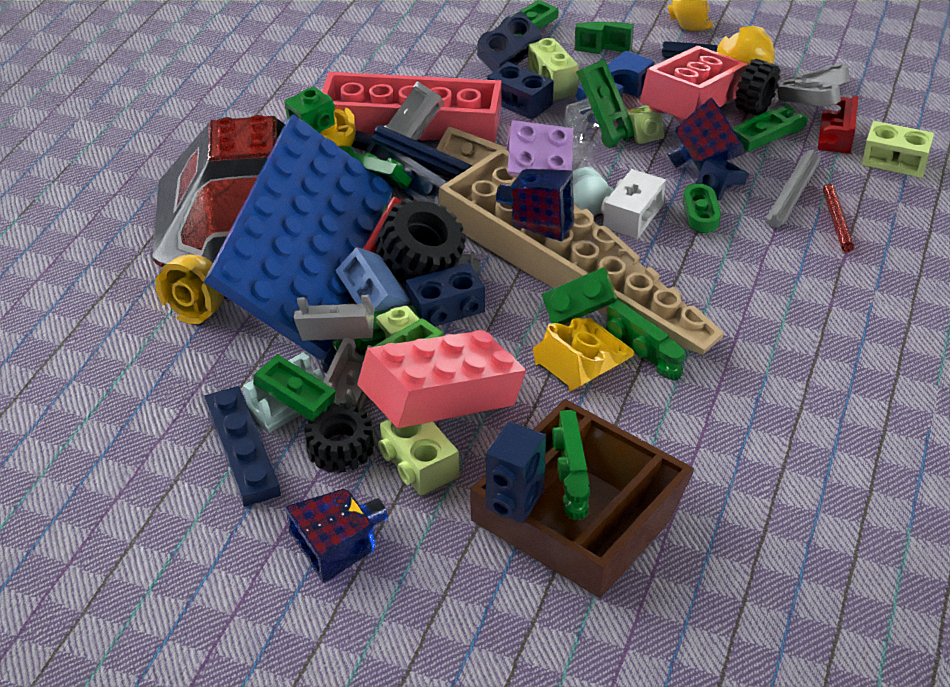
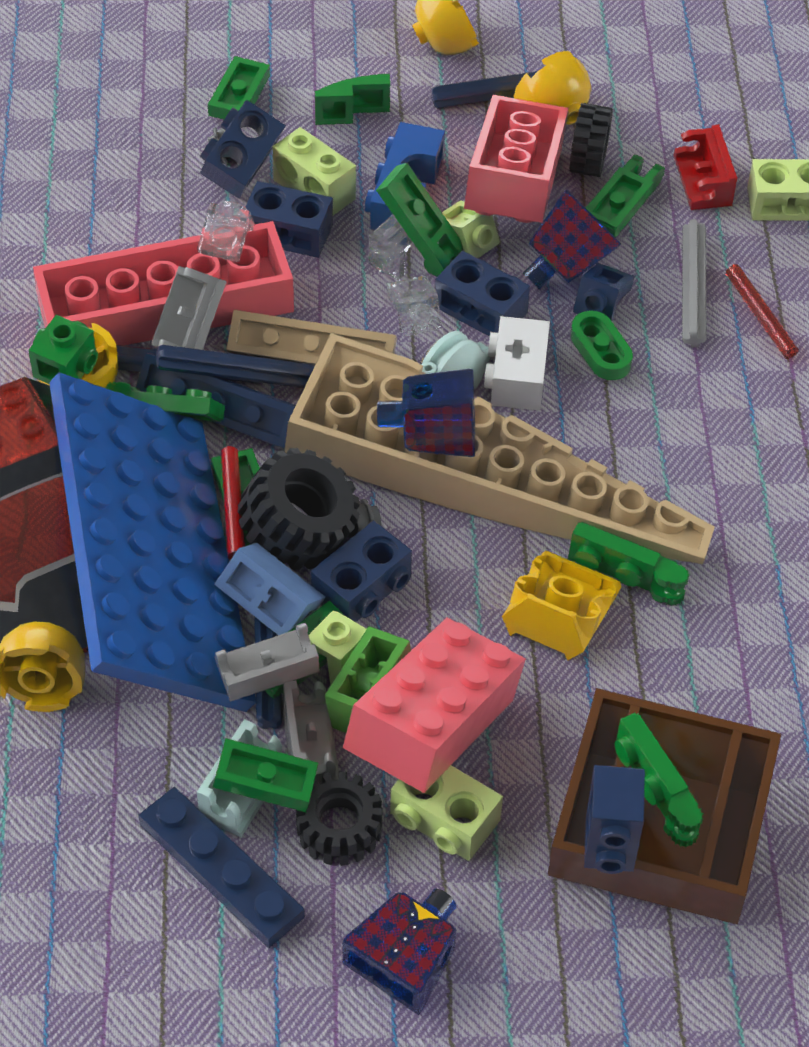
camera: 25 degrees left, 10 degrees up
(461, 73) = (225, 230): none -> clear bracket
(538, 147) = (386, 329): lavender bracket -> none
(579, 297) = (529, 529): green plate -> none
(625, 151) = (480, 293): none -> dark blue brick
(815, 87) = (644, 120): light grey beam -> none

